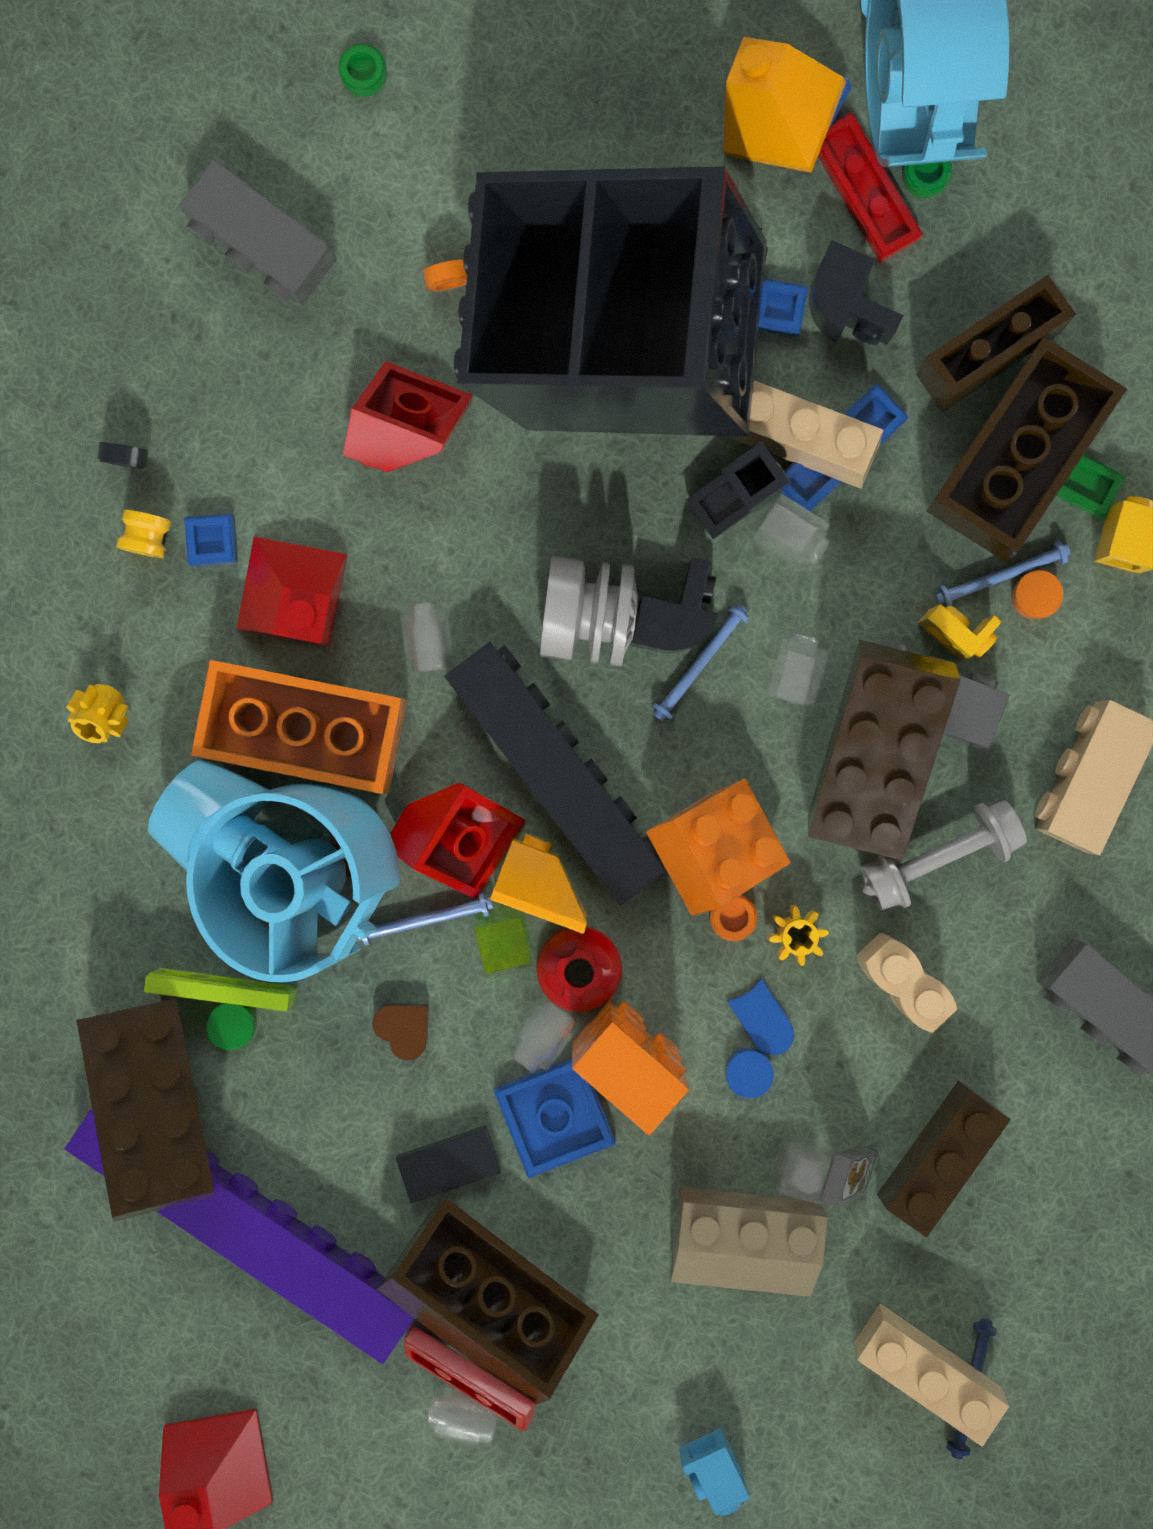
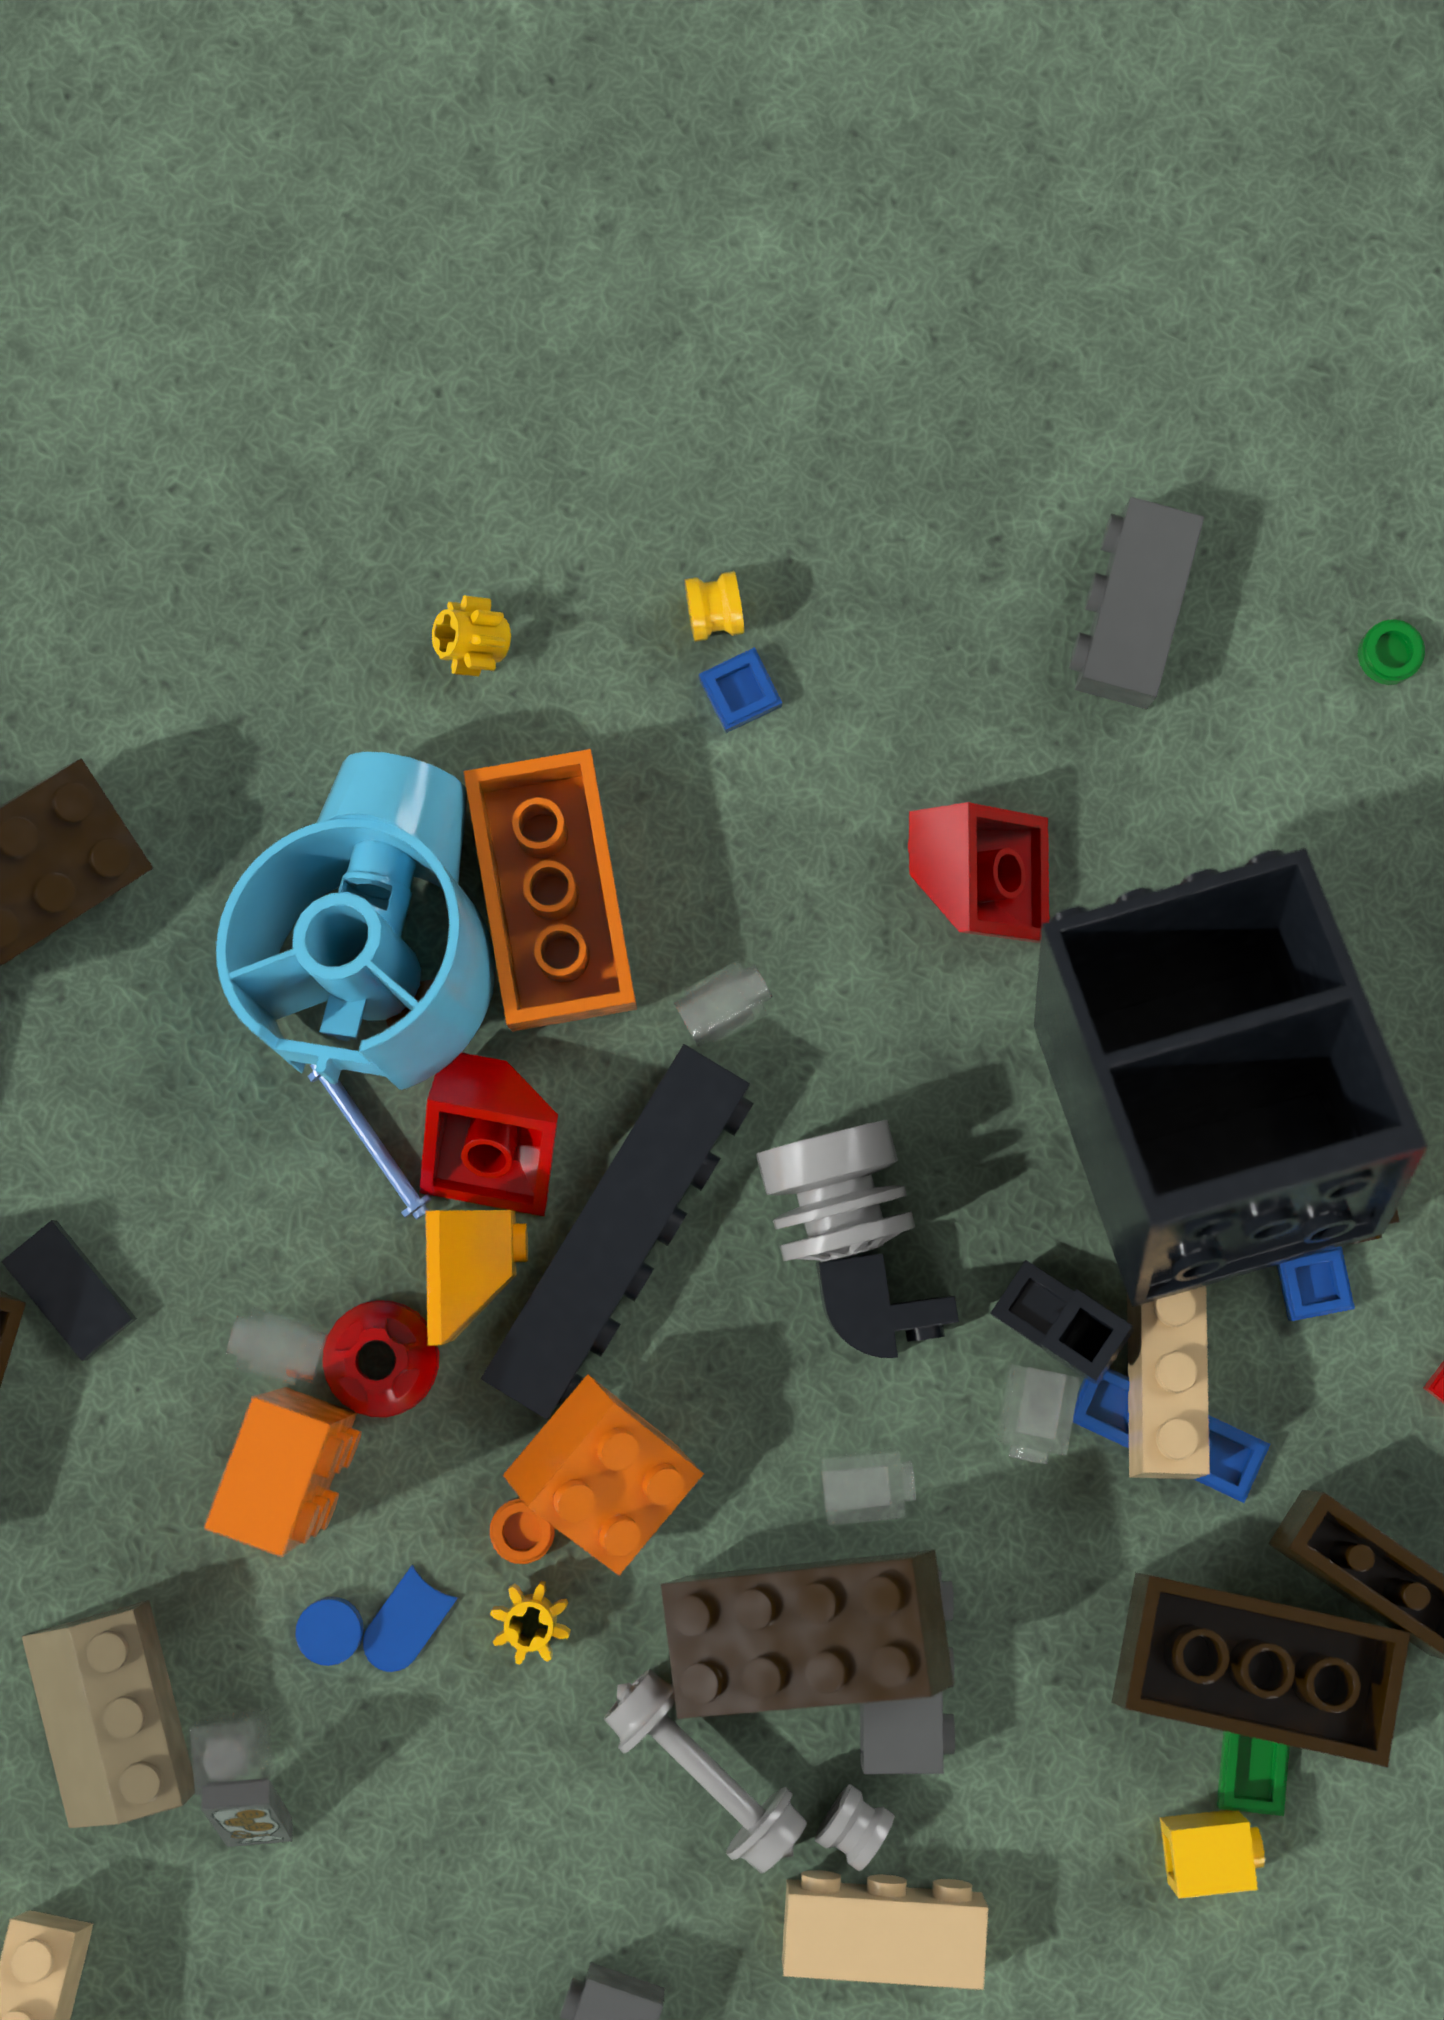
camera: 65 degrees right, 5 degrees down
(122, 455) = (801, 544): black tile -> none
(221, 989) = (185, 919): lime tile -> none
(231, 1026) = (143, 948): green tile -> none
(292, 591) = (716, 813): red slope -> none
(404, 1027) = (222, 1166): reddish brown tile -> none
(445, 275) = (1180, 850): orange tile -> none
(502, 945) = (374, 1249): clear neon green tile -> none
(553, 1117) = (178, 1401): blue tile -> none
(737, 615) = (906, 1382): medium blue axle -> none
(837, 298) = (1350, 1352): black brick -> none
(910, 988) = (519, 1797): tan brick -> none
(942, 1158) = (313, 1928): dark brown brick -> none
(951, 631) = (998, 1664): yellow bracket -> none
(1020, 769) = (854, 1827): none -> light grey wheel
(1037, 594) = (1087, 1760): orange tile -> none
(1058, 553) = (1151, 1766): medium blue axle -> none

